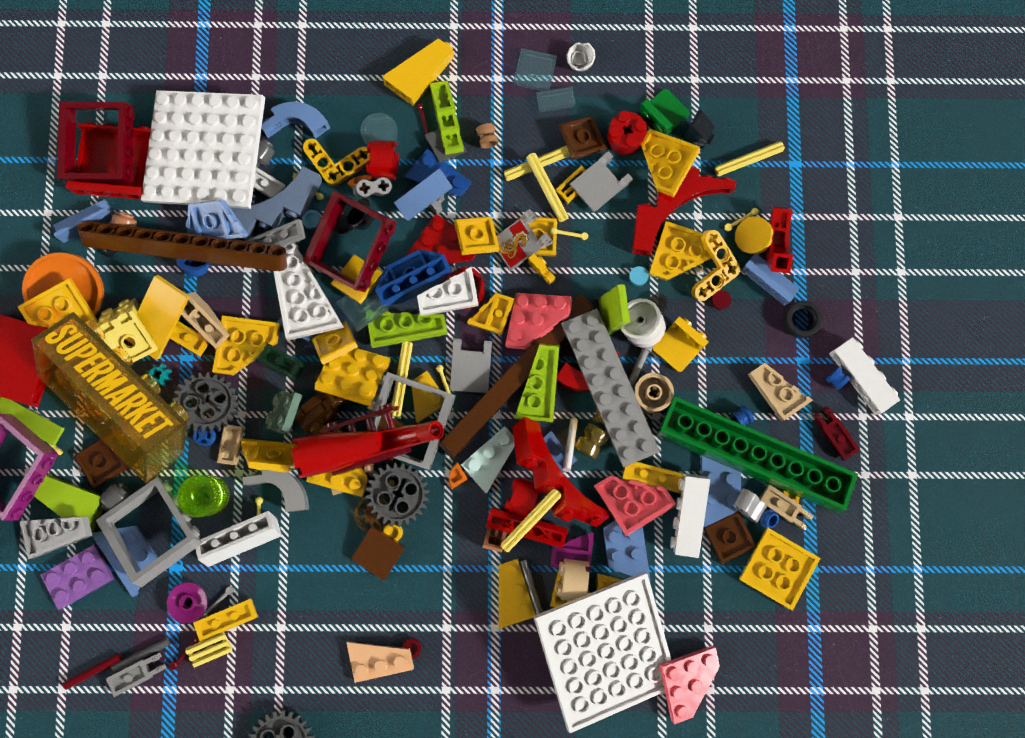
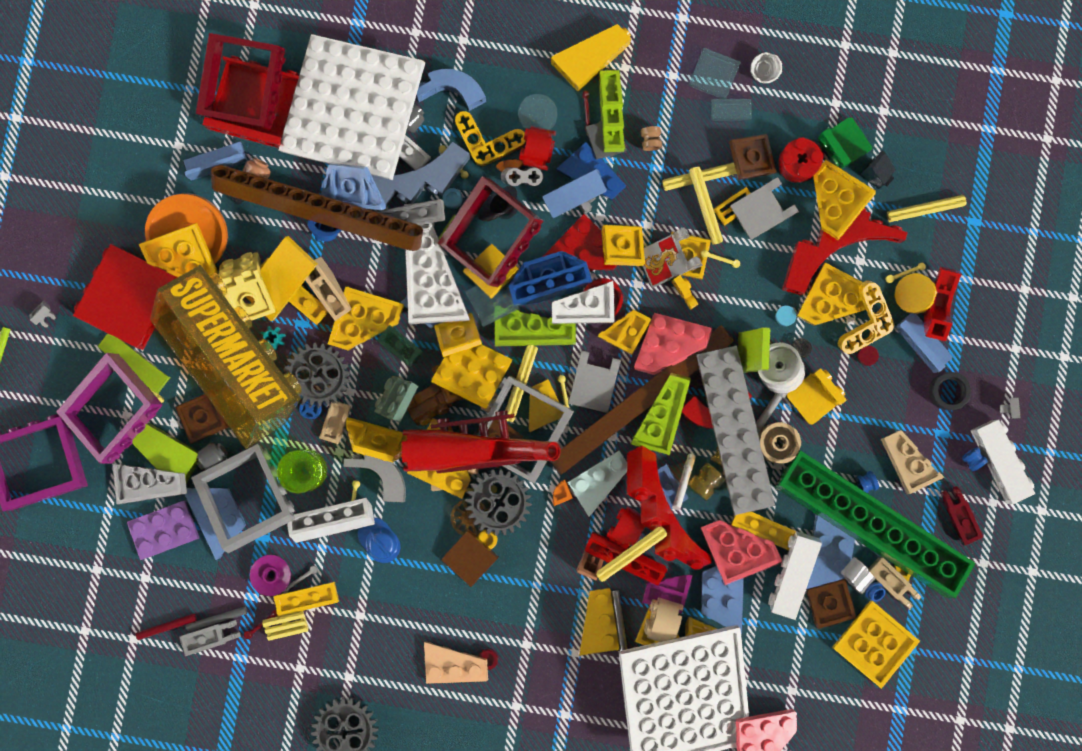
camera: 15 degrees right, 5 degrees up
(289, 552) = (379, 541): none -> blue piece
(864, 325) = (1013, 408): none -> light grey tile

